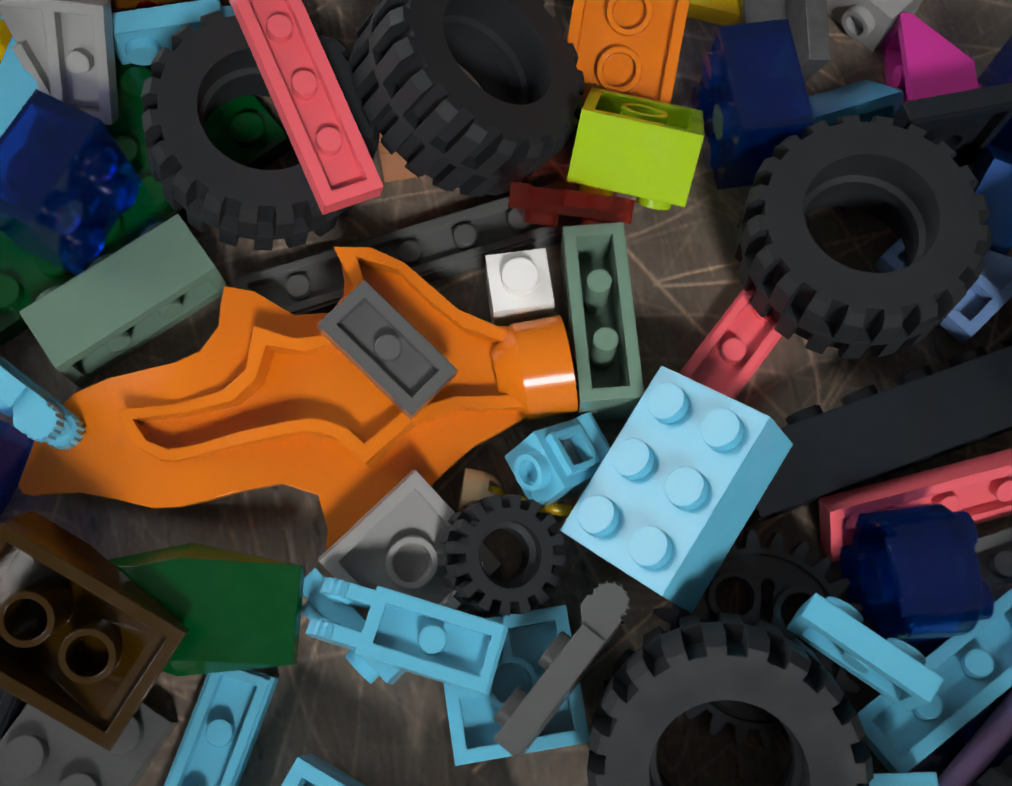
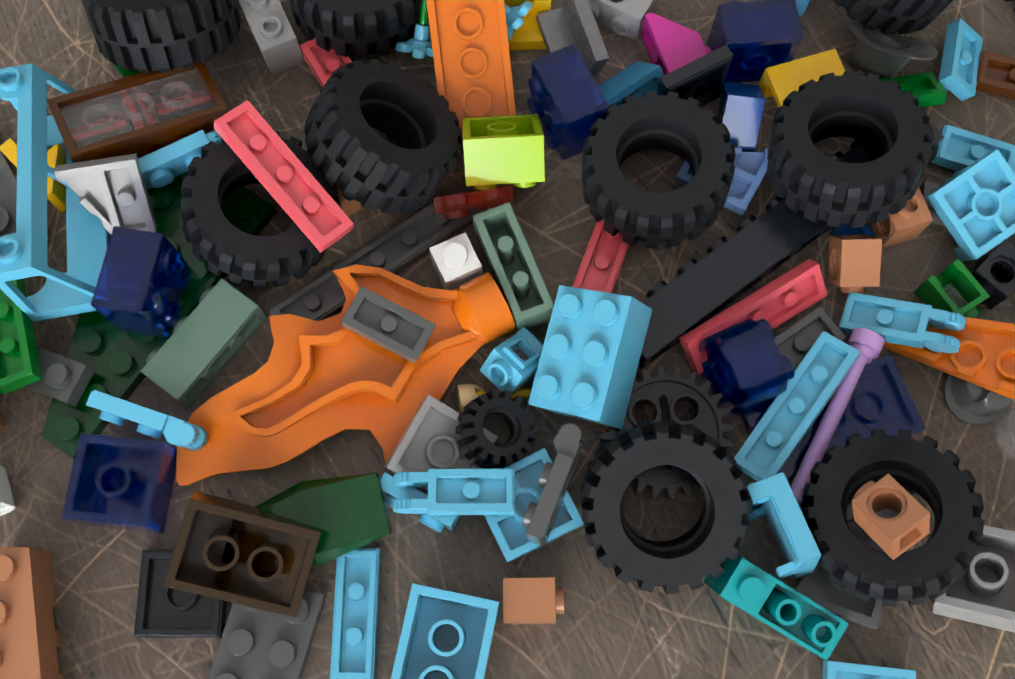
camera: 15 degrees left, 0 degrees up
(883, 664) = (740, 422): medium azure plate -> none

